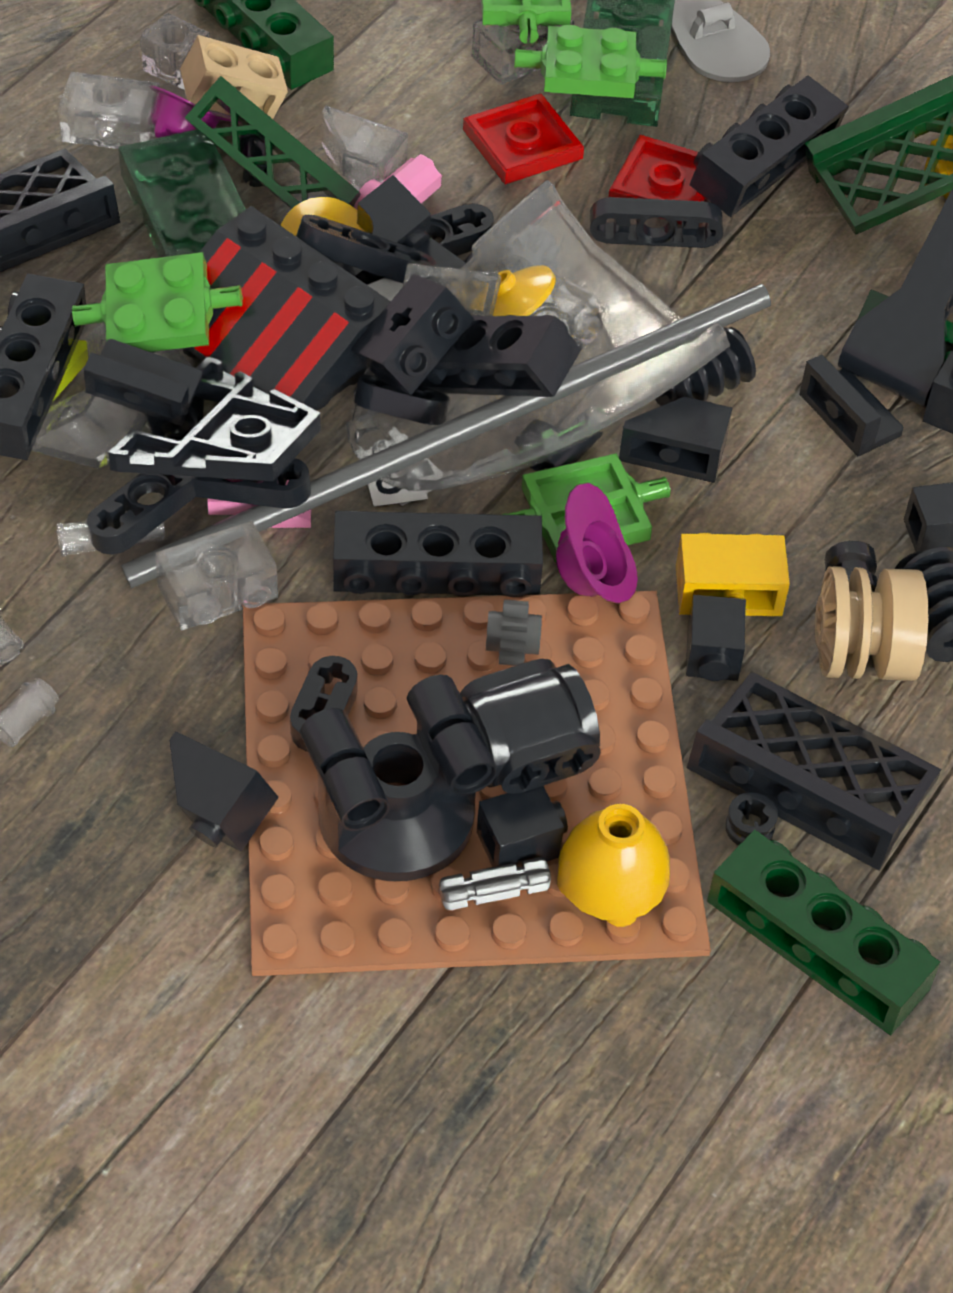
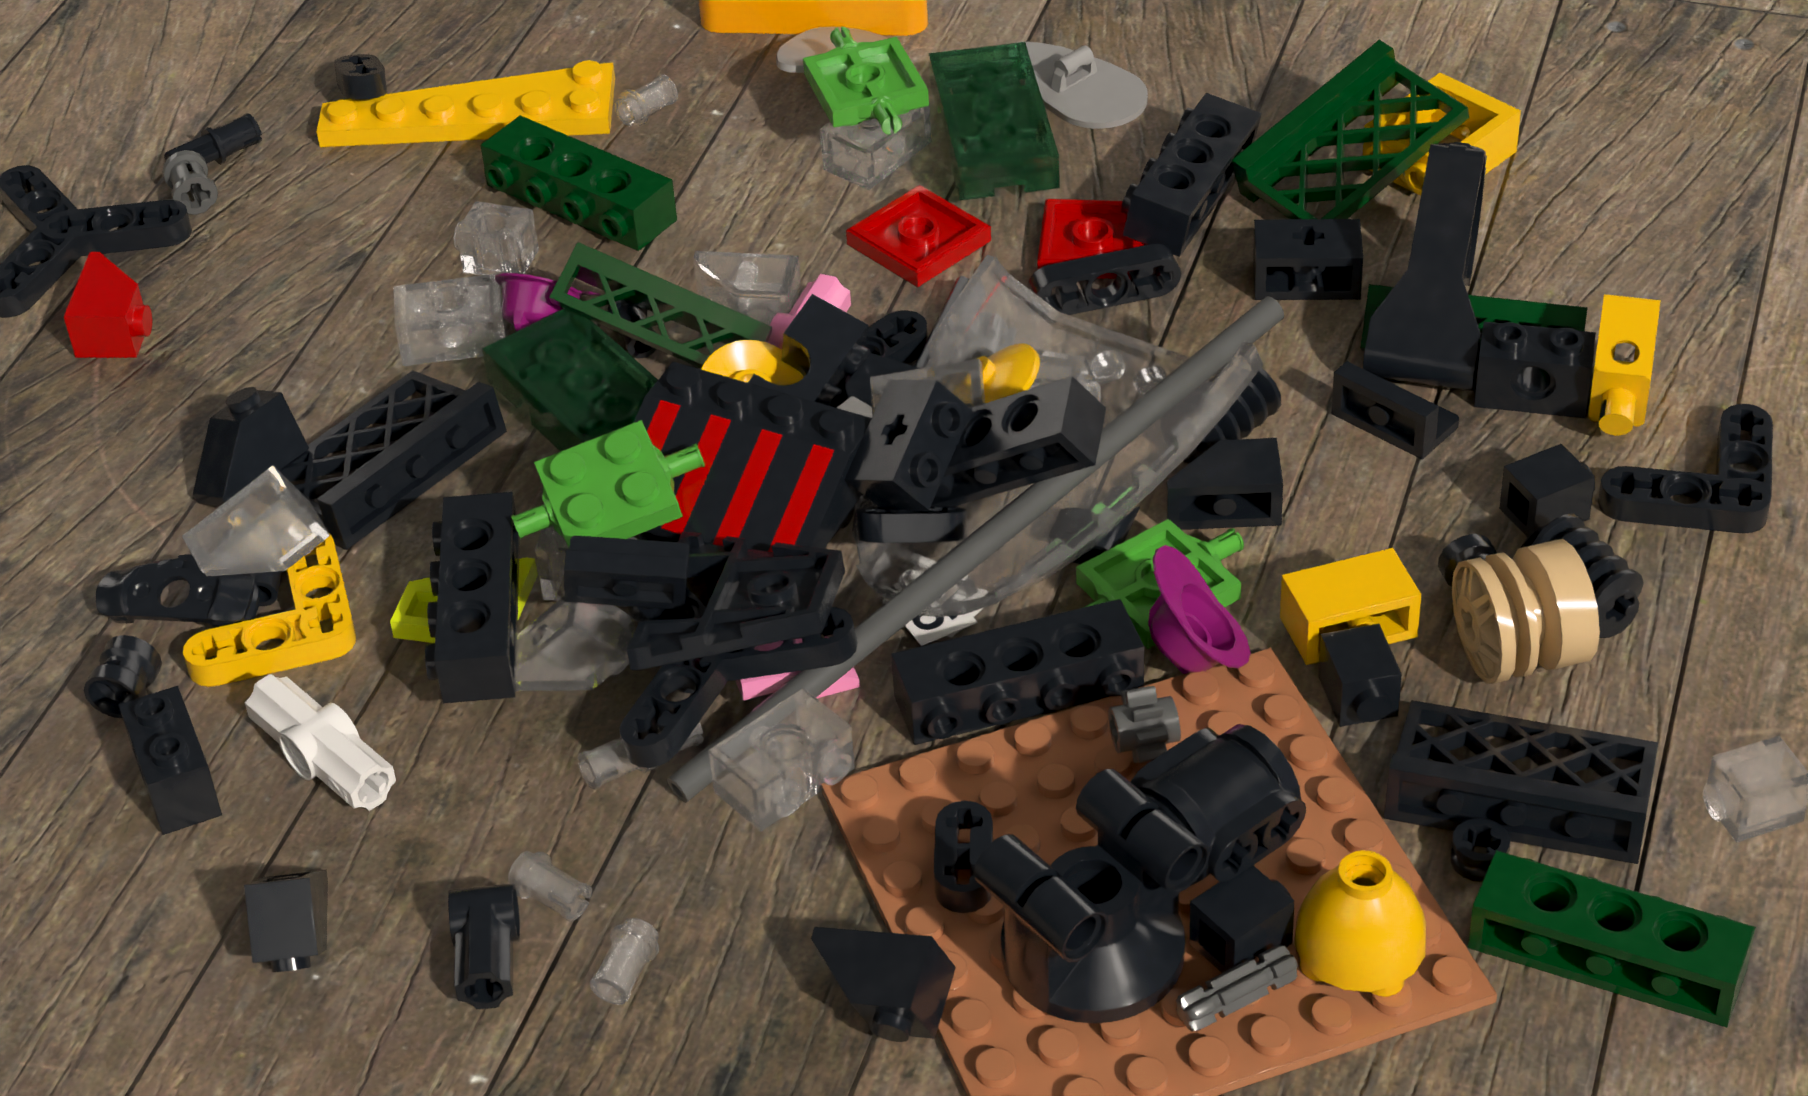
camera: 10 degrees left, 10 degrees down
(249, 71) = (552, 236): tan brick -> none
(360, 248) = (808, 377): black beam -> none
(590, 62) = (968, 135): bright green plate -> none
(834, 249) = (1308, 259): none -> black brick

